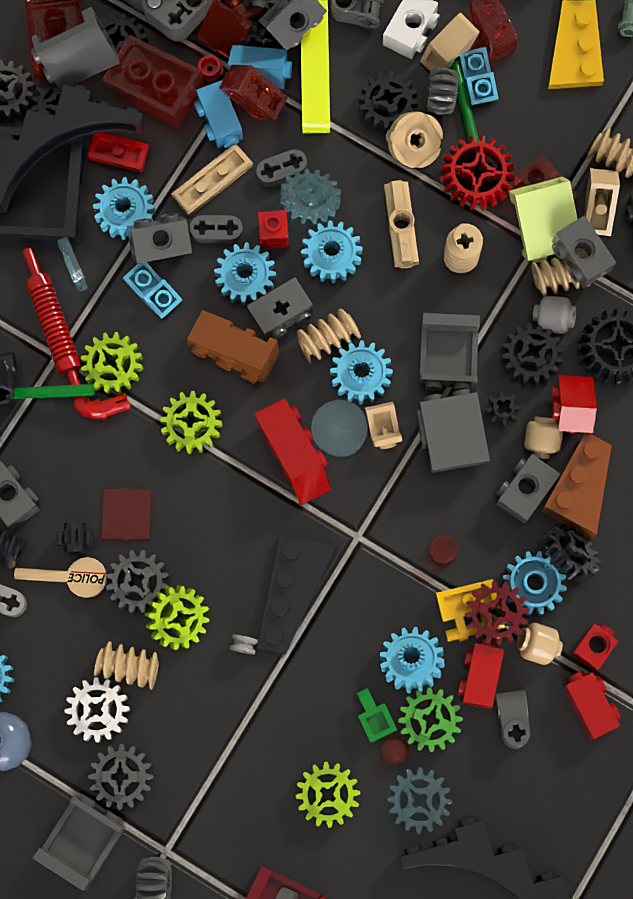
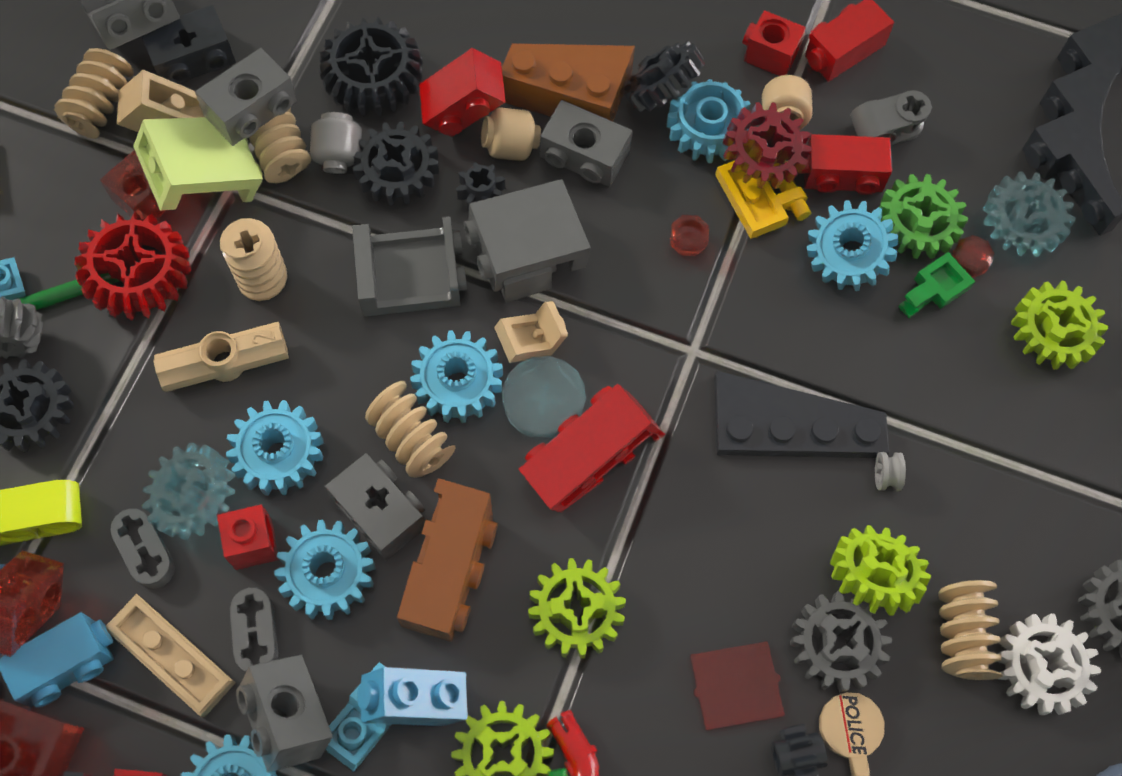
camera: 105 degrees left, 10 degrees down
(152, 313) = (412, 697): none -> dark azure brick
(429, 142) = (83, 373): tan plate -> none

